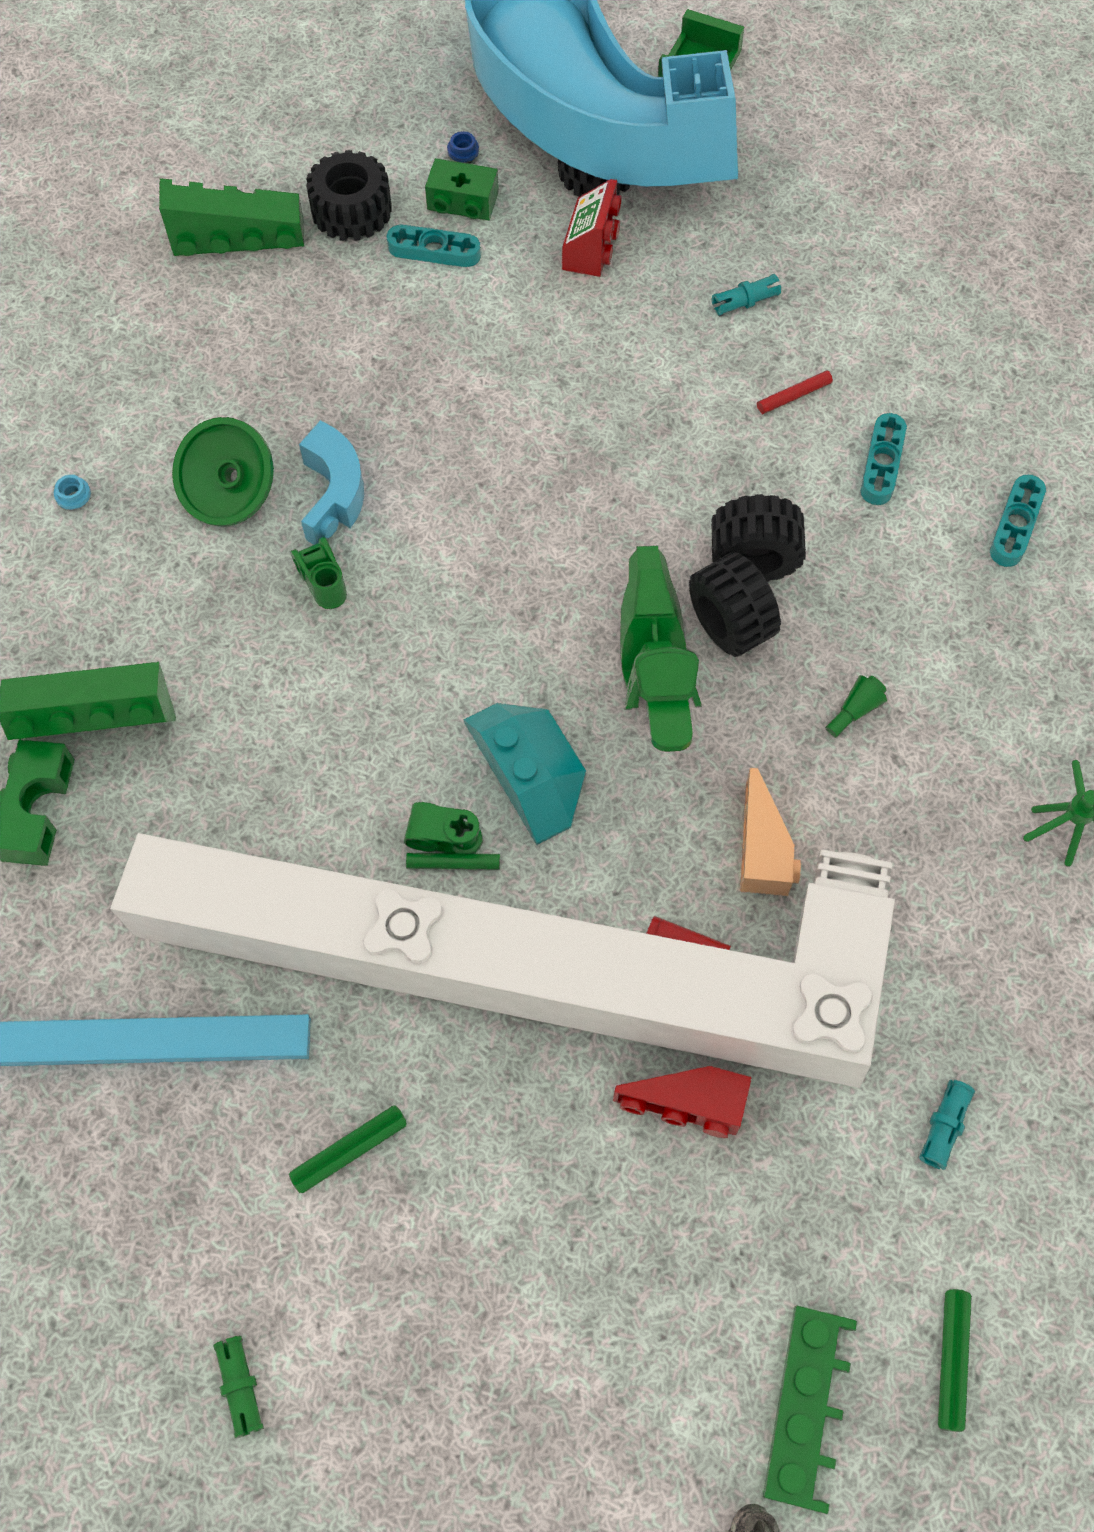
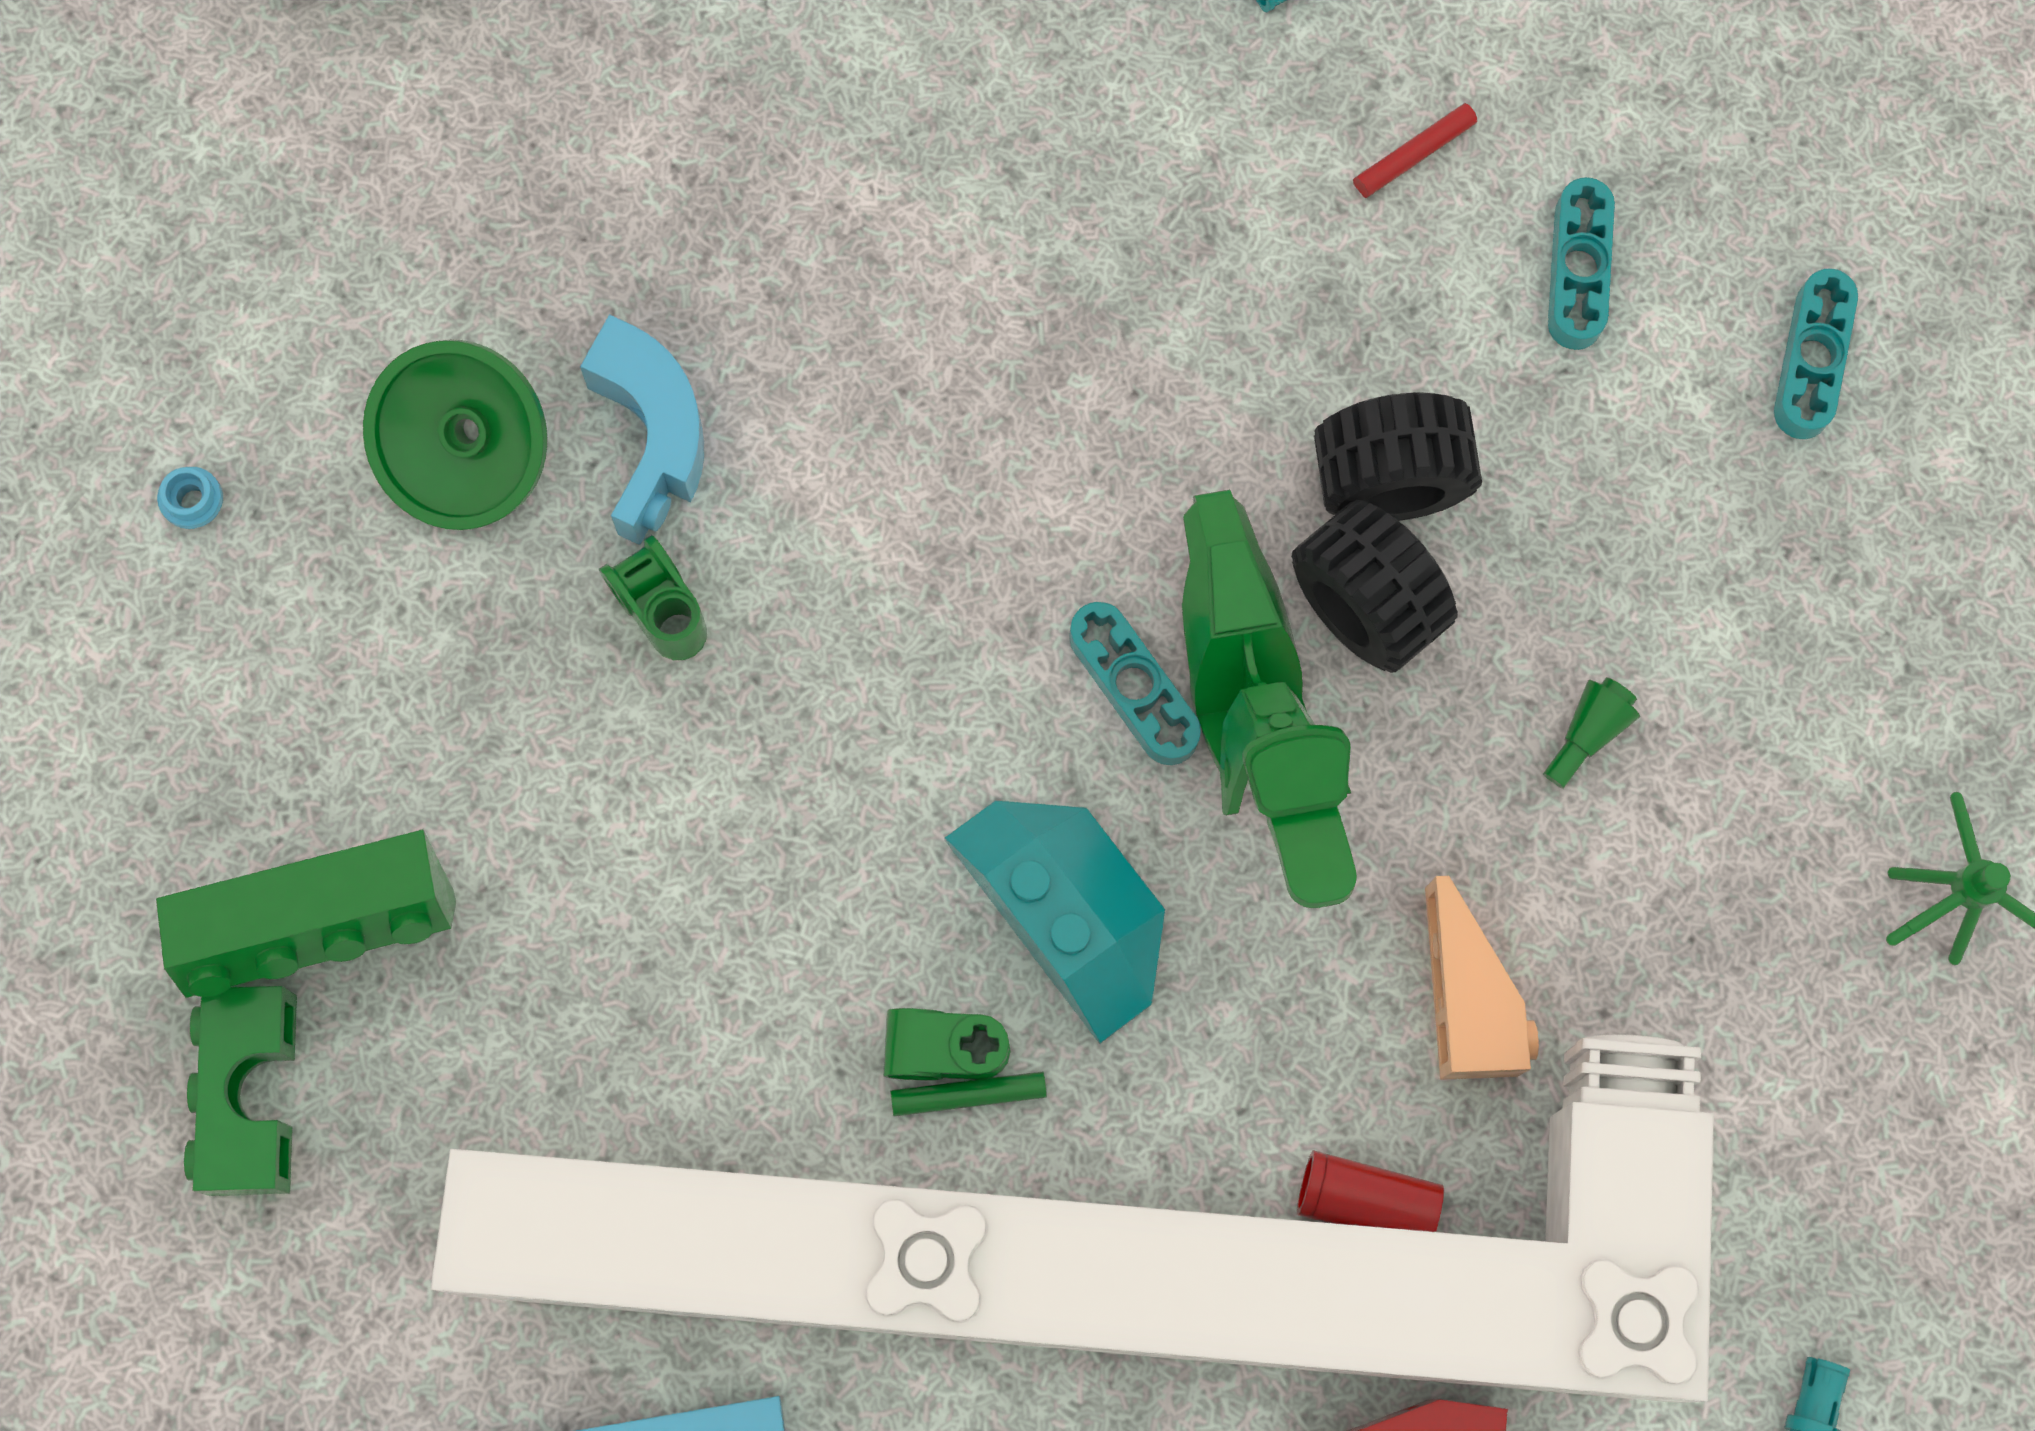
camera: 15 degrees left, 10 degrees up
(588, 634) = (1173, 712): none -> teal beam

